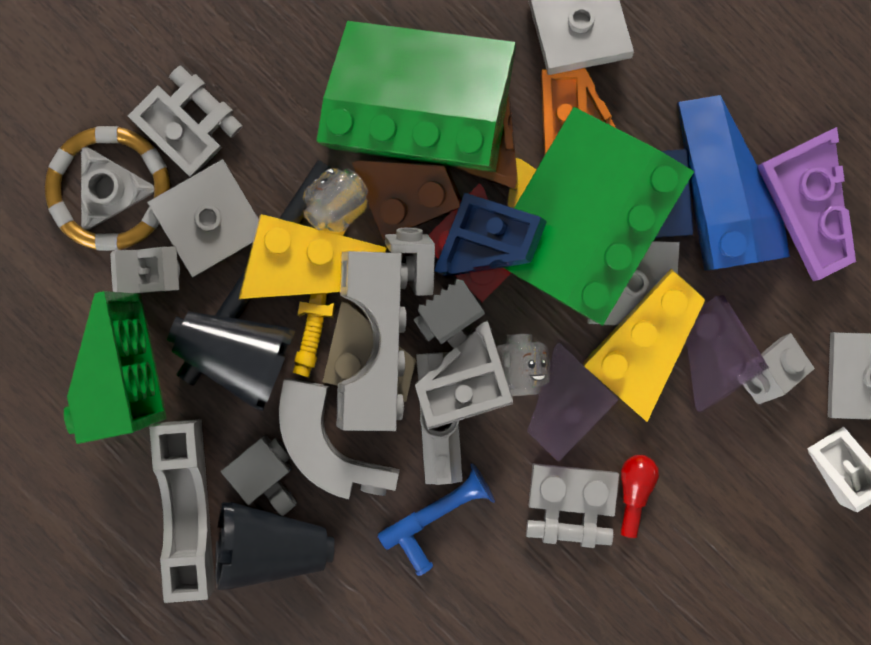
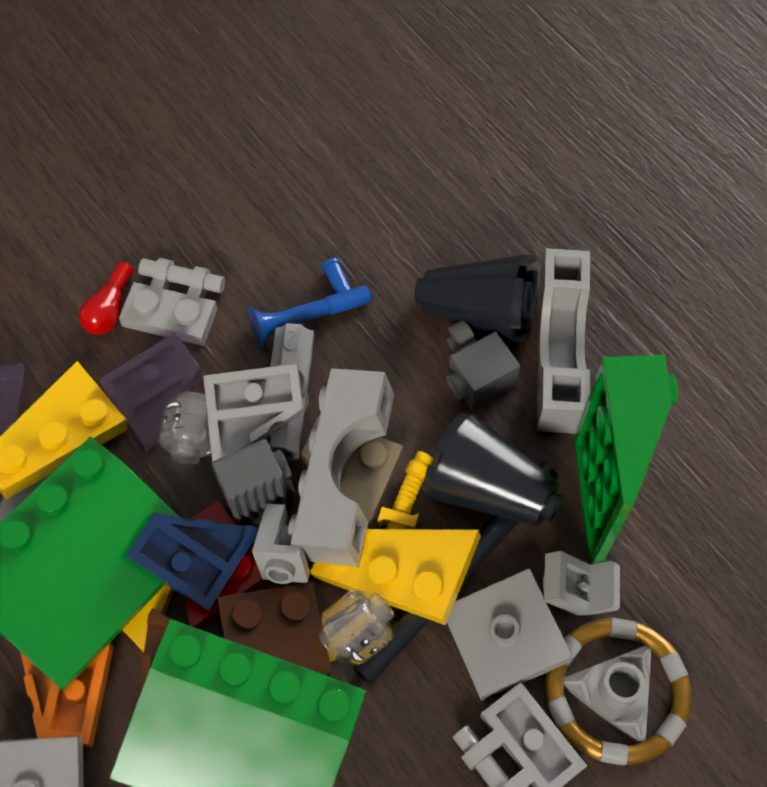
camera: 175 degrees left, 25 degrees down
(312, 452) = (416, 370): light grey arch -> none

